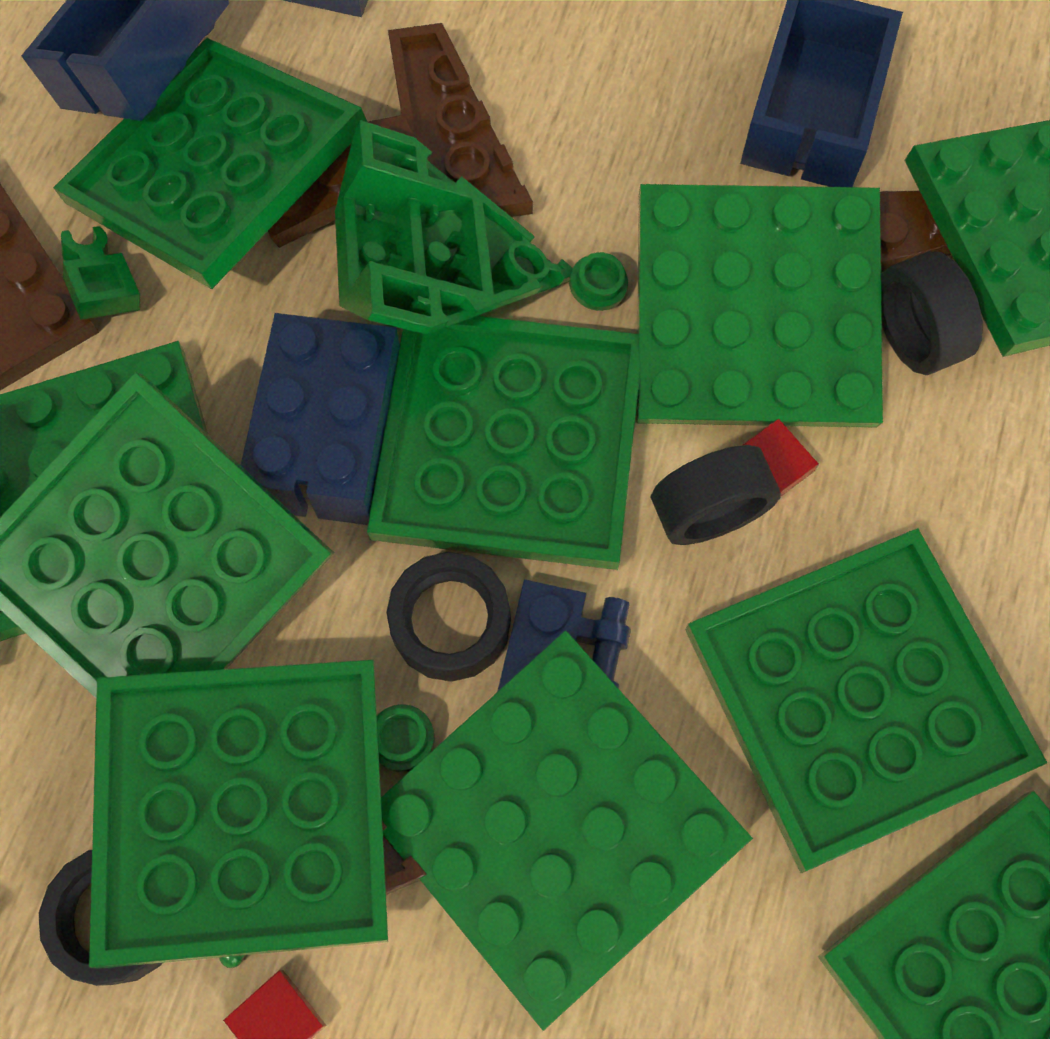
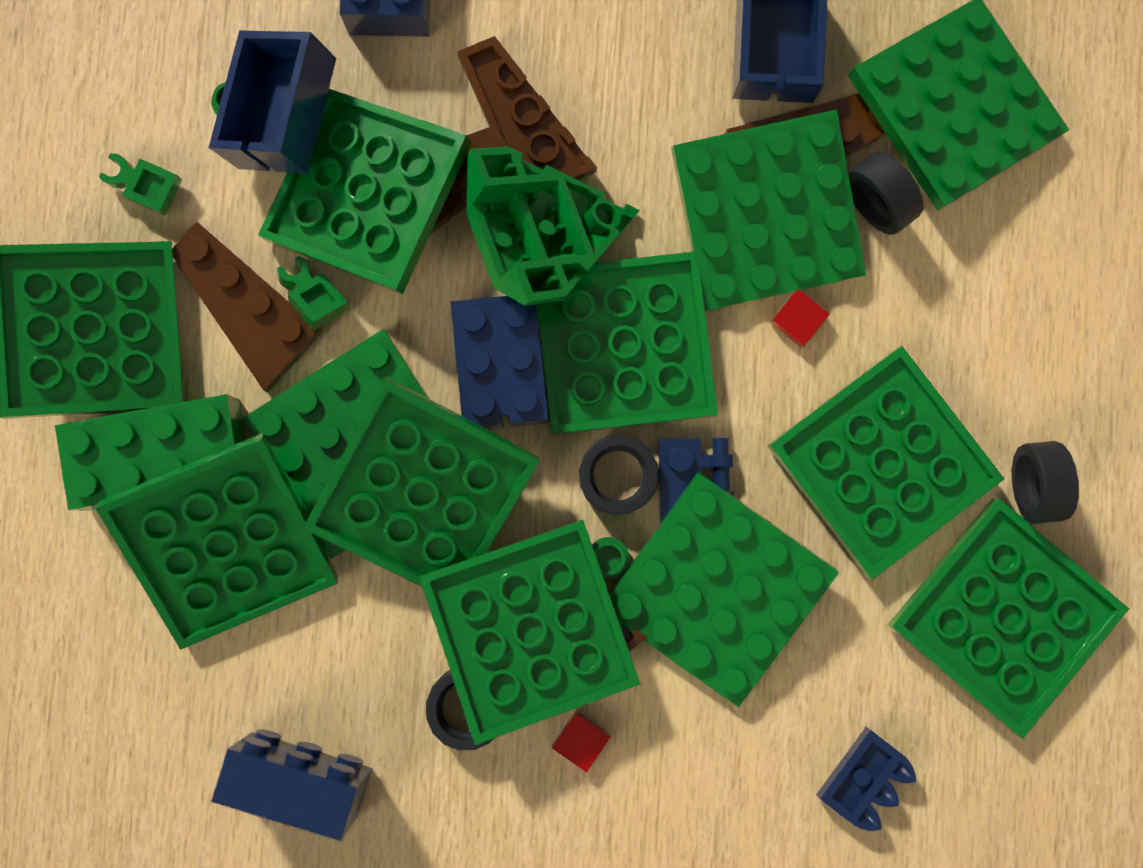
camera: 20 degrees left, 15 degrees up
(598, 281) = (655, 215): green plate -> none
(715, 494) = (770, 357): black tyre -> none

